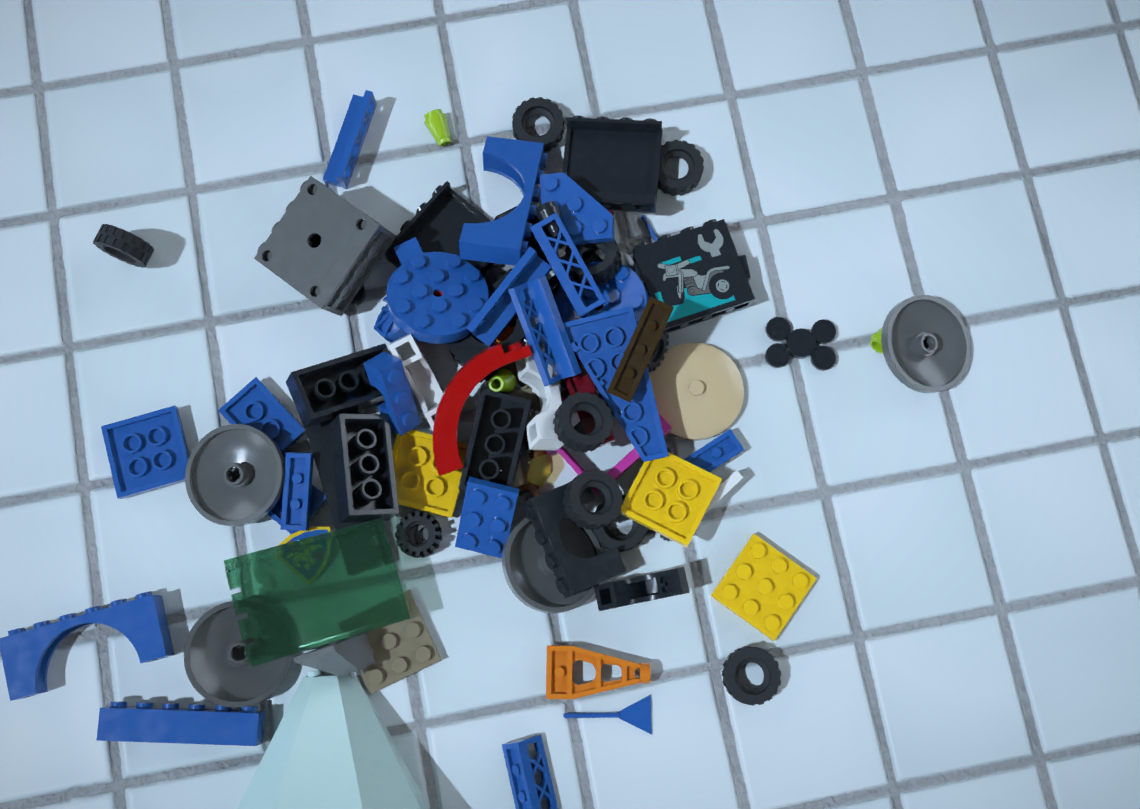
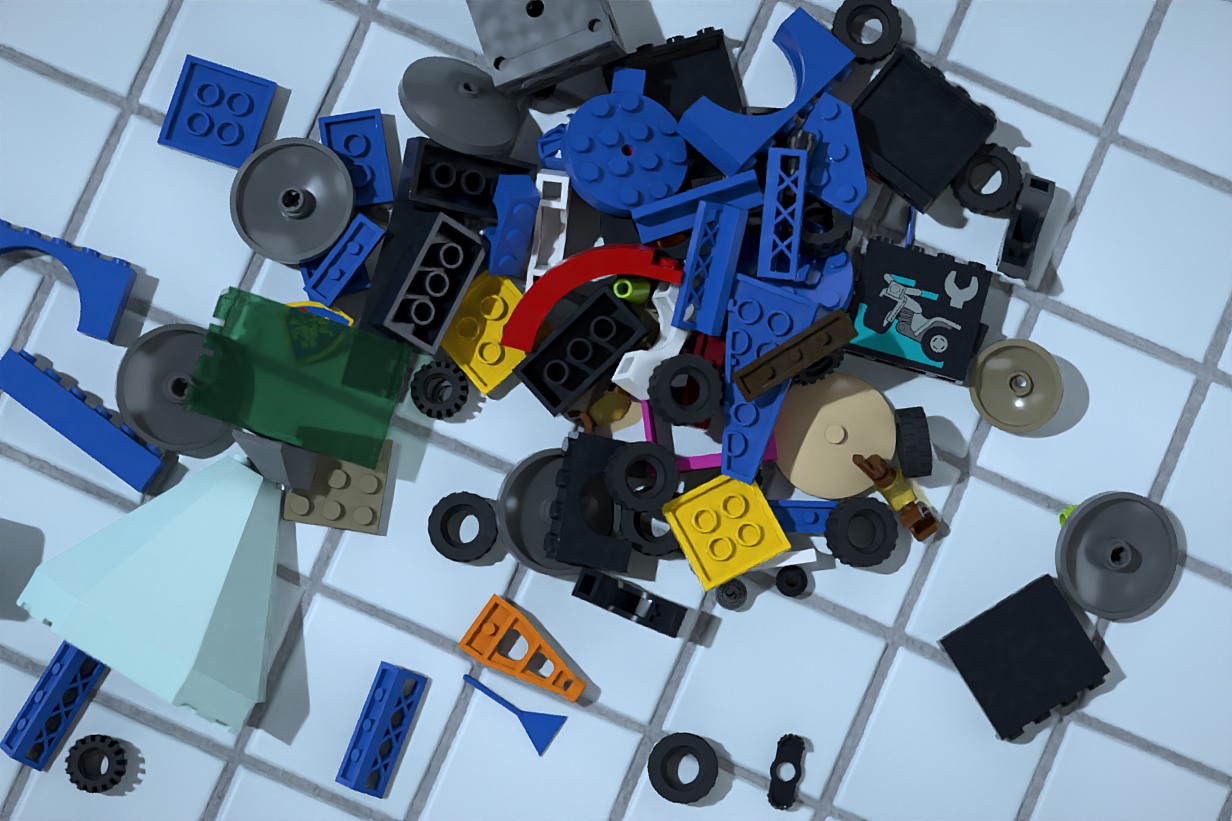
camera: 35 degrees right, 5 degrees up
(306, 339) = (458, 106): none -> dark grey dish
(476, 620) = (439, 521): none -> black tyre
(486, 517) = (520, 419): blue plate -> none
(702, 538) = (731, 594): none -> dark grey tile
(721, 180) = (1024, 227): none -> black arch
(726, 504) = (781, 581): none -> black plate
(751, 358) = (913, 442): none -> black tyre
(763, 587) = (759, 688): yellow plate -> none
(764, 399) = (900, 495): none -> reddish brown piece
(769, 426) = (837, 531): none -> black tyre
(792, 296) = (1001, 398): none -> dark tan dish
(800, 343) = (983, 462): black piece -> none
(825, 645) = (782, 792): none -> black piece
(916, 448) = (1024, 657): none -> black panel

